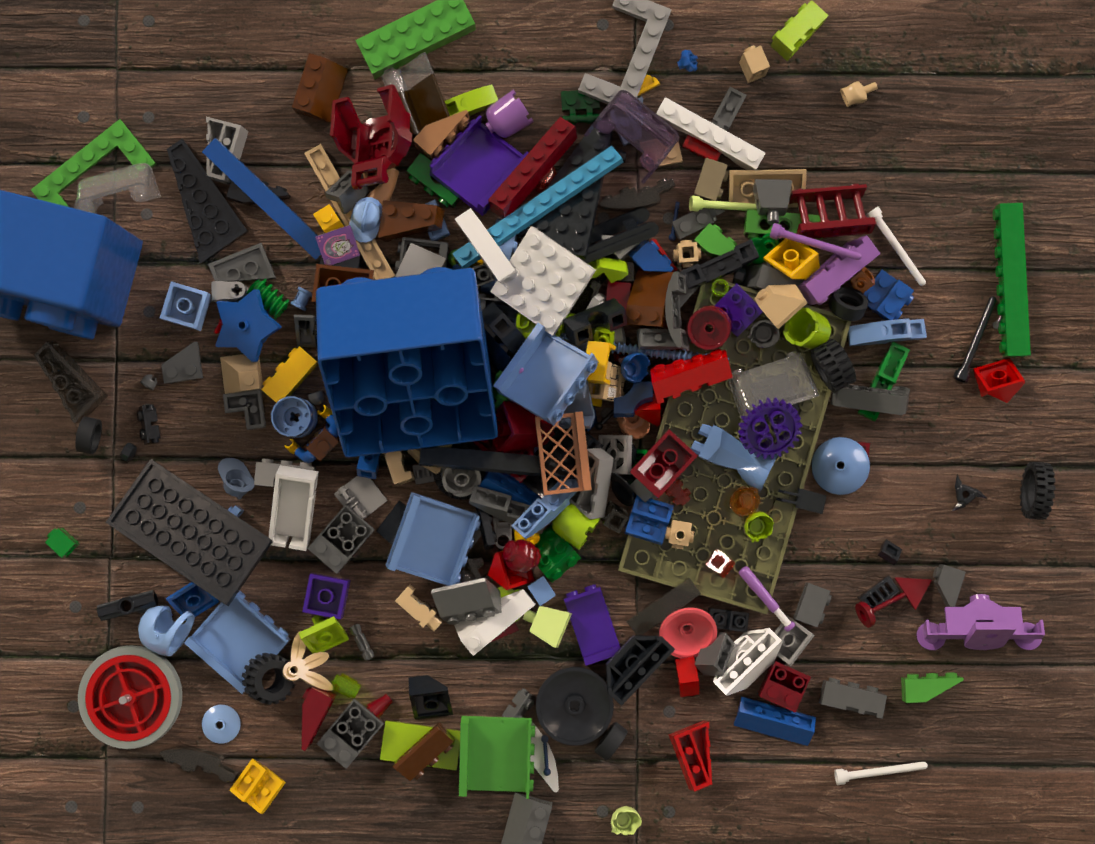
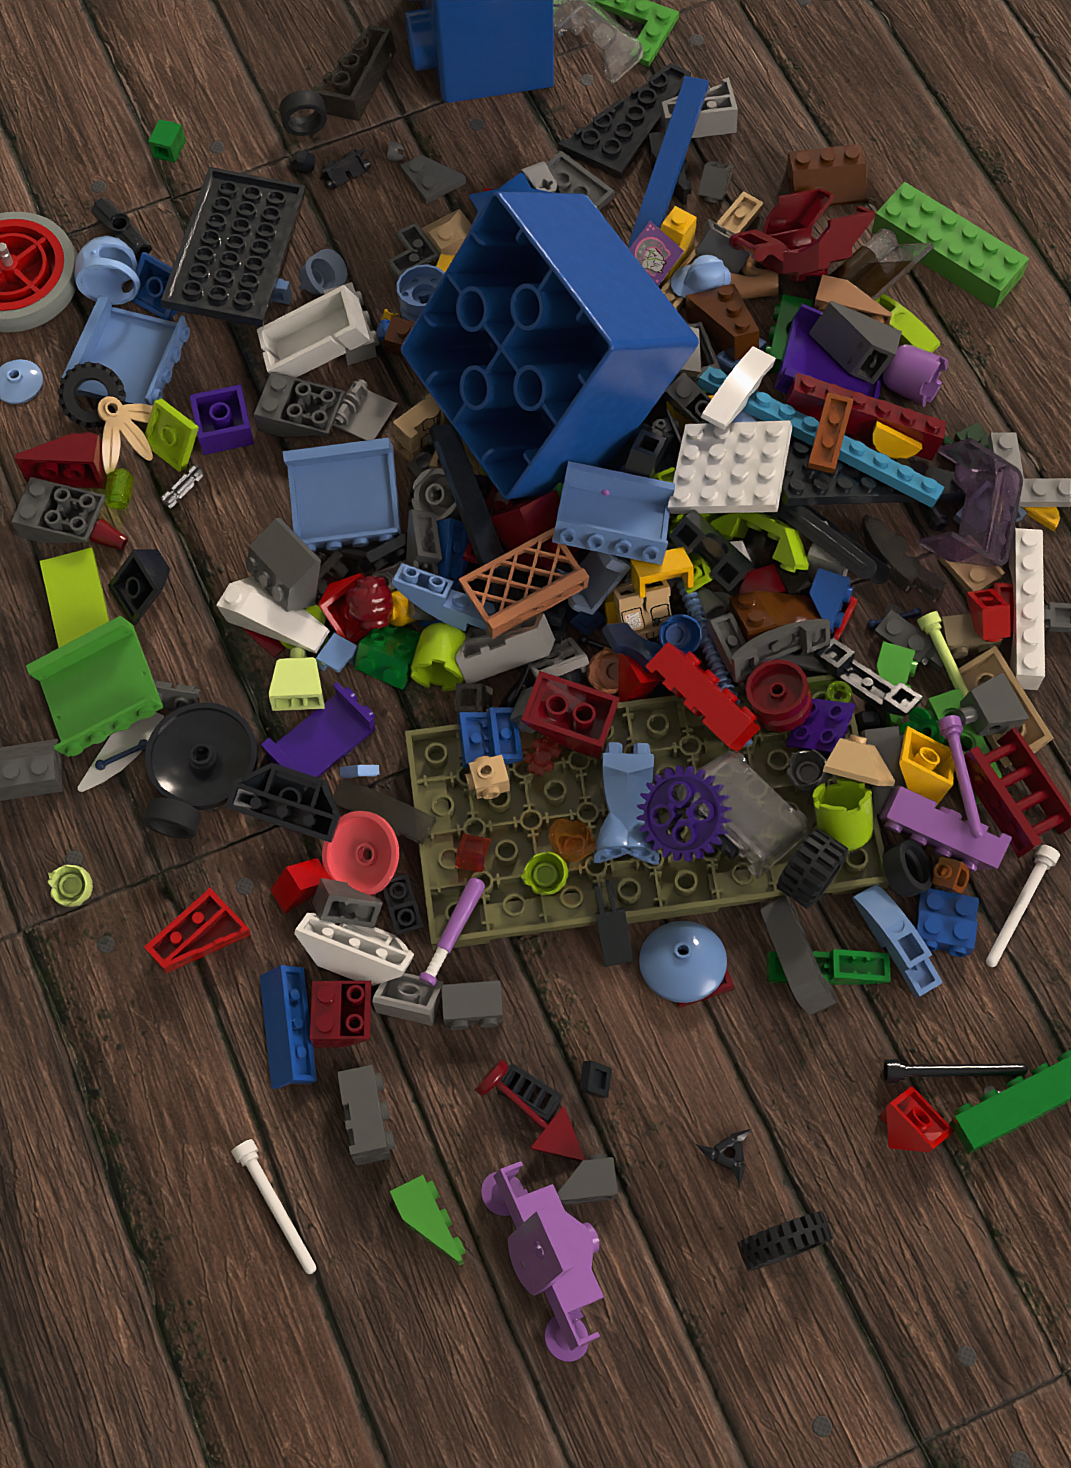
camera: 65 degrees right, 20 degrees down
(185, 306) = (500, 146): light blue brick -> none
(284, 166) = (715, 181): none -> dark grey slope
(368, 466) = (404, 397): blue brick -> none
(419, 610) = (250, 518): tan hips -> none
(424, 752) = (66, 595): reddish brown slope -> none
(476, 143) = (856, 341): none -> dark grey slope
(547, 202) = (830, 433): none -> dark orange plate
(561, 158) = (894, 443): none -> yellow tile
(627, 609) = (359, 770): none -> light blue tile
(690, 247) = (863, 641): tan brick -> none
(710, 165) = (989, 614): none -> red slope

